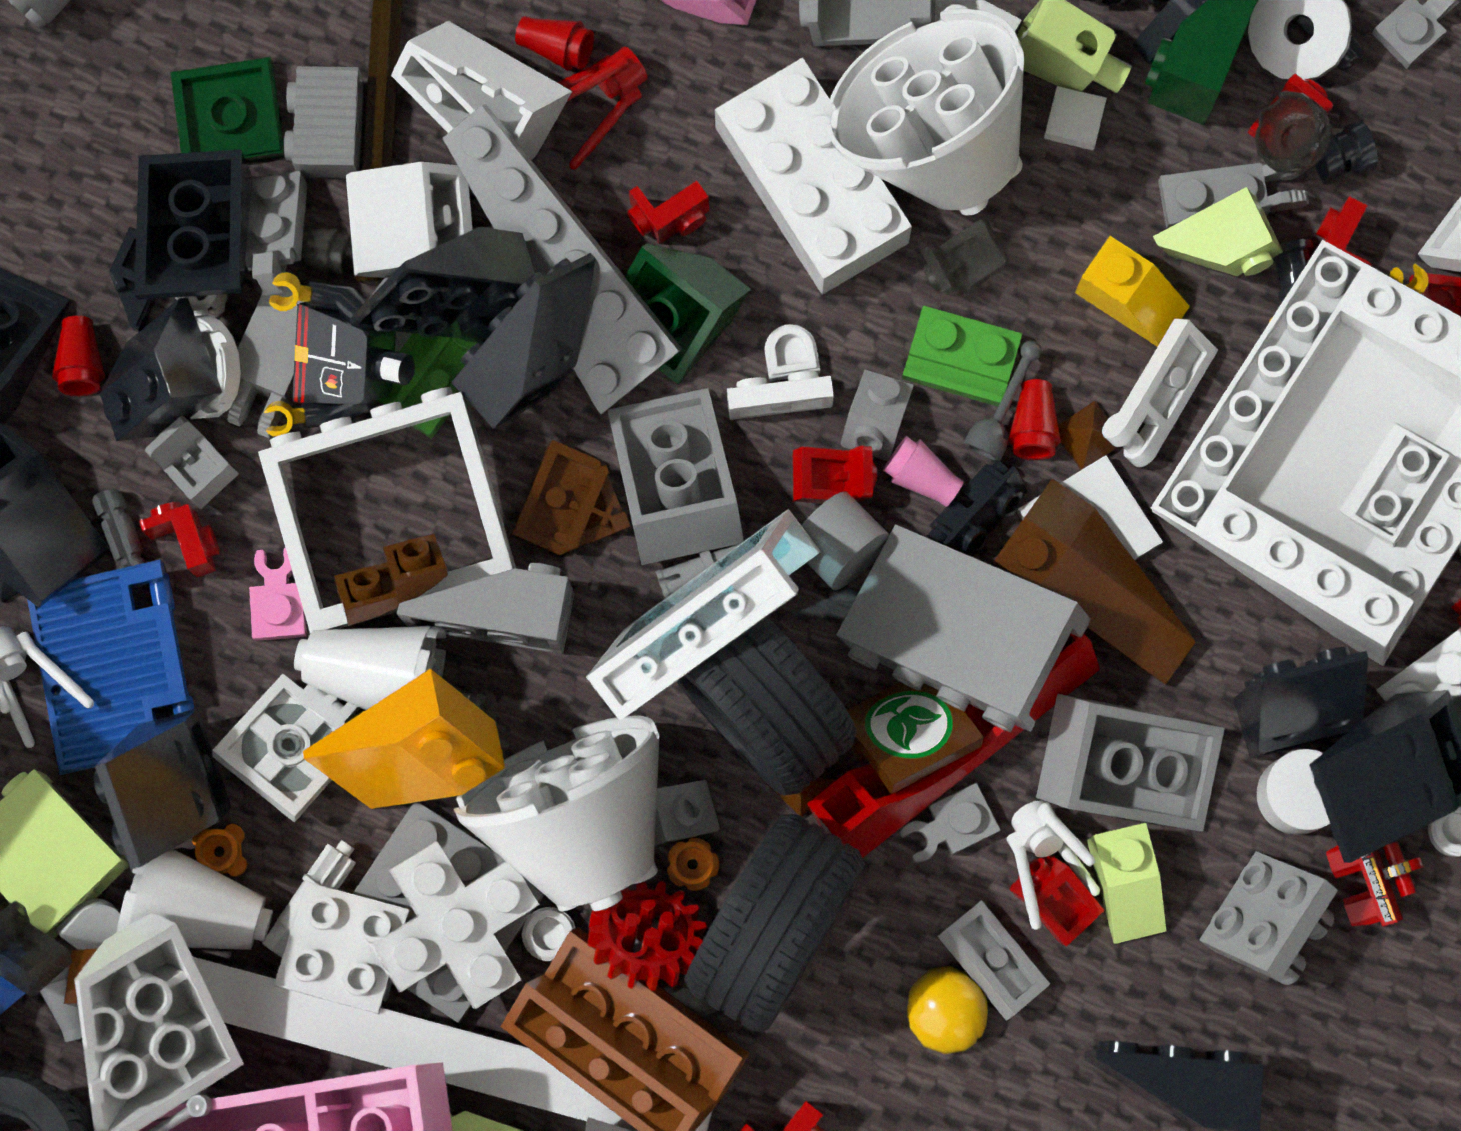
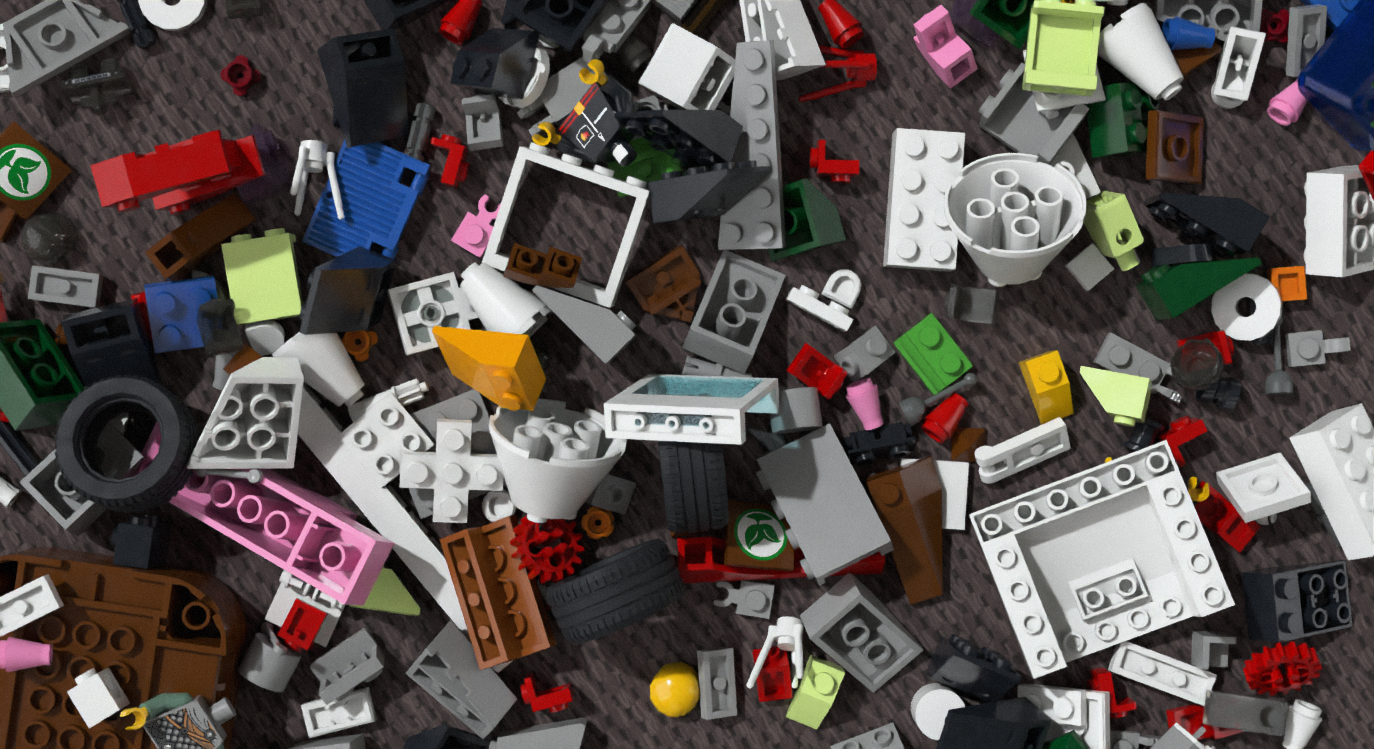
camera: 35 degrees right, 10 degrees up
(1408, 91) = (1278, 381): none -> dark grey hinge

